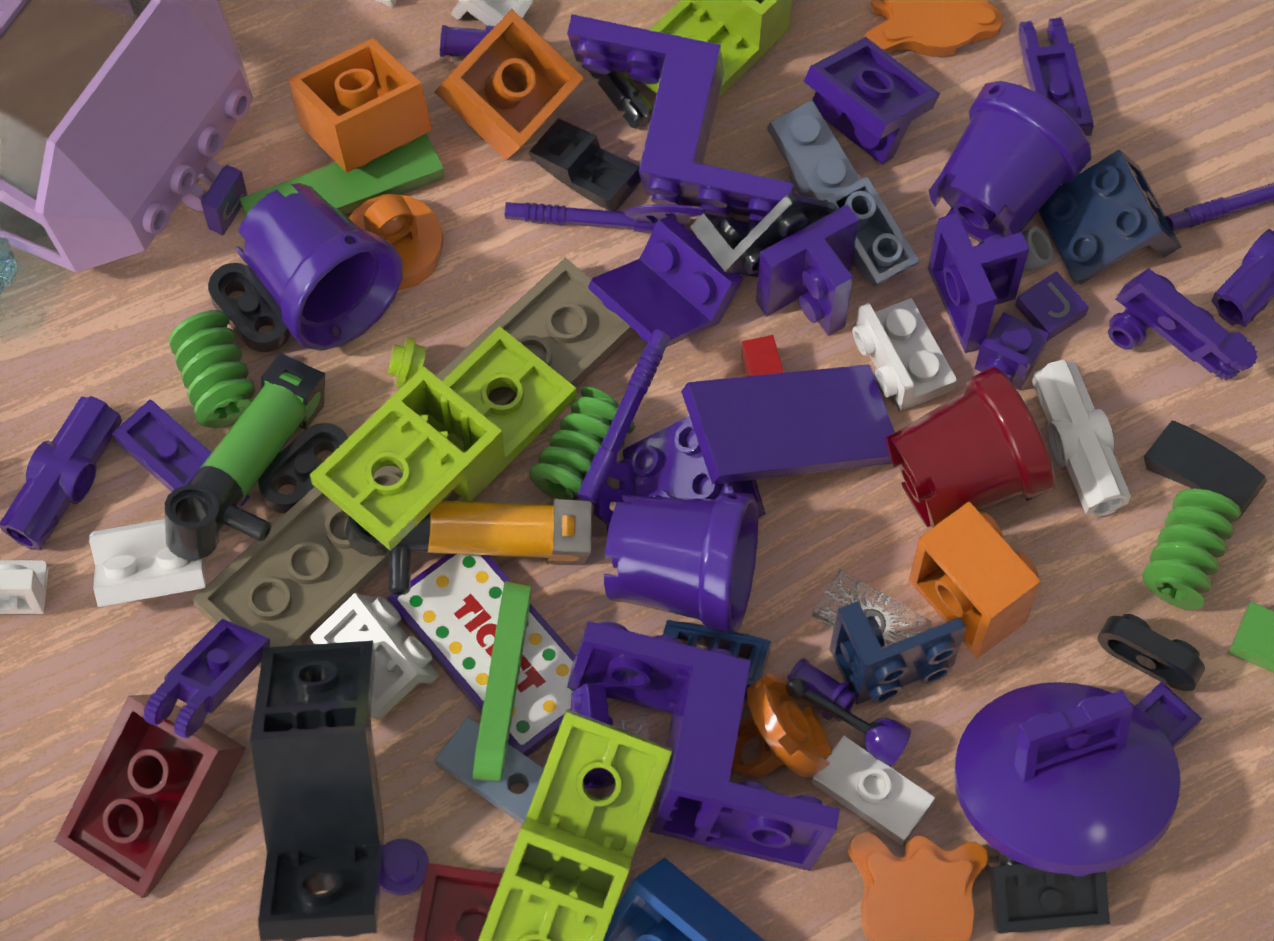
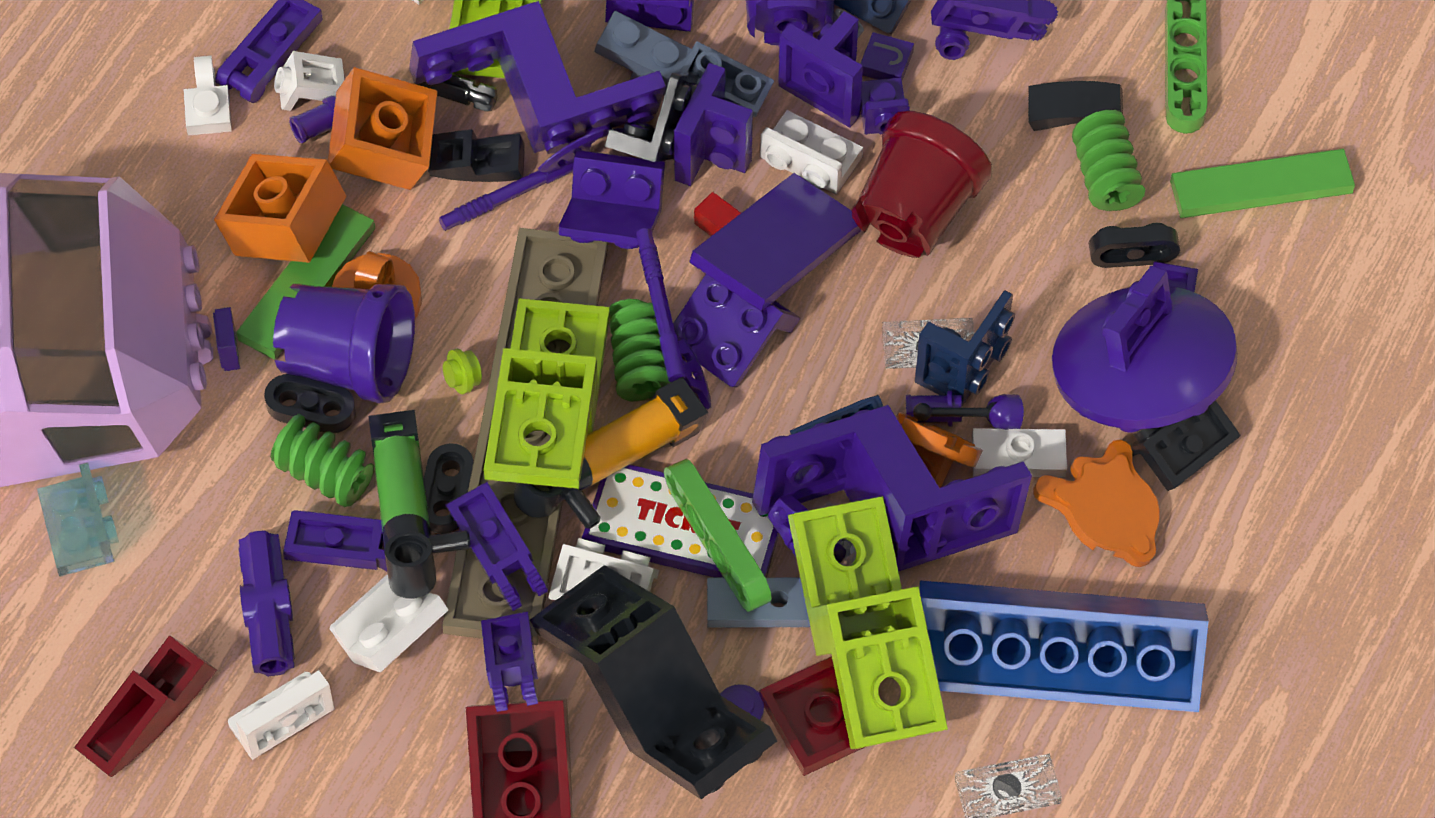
camera: 35 degrees left, 5 degrees down
(294, 553) = (495, 541): none -> dark purple hinge
(685, 556) = (778, 372): dark purple piece -> none
(974, 576) = (982, 261): orange brick -> none
(1081, 438) = (1004, 149): white piece -> none

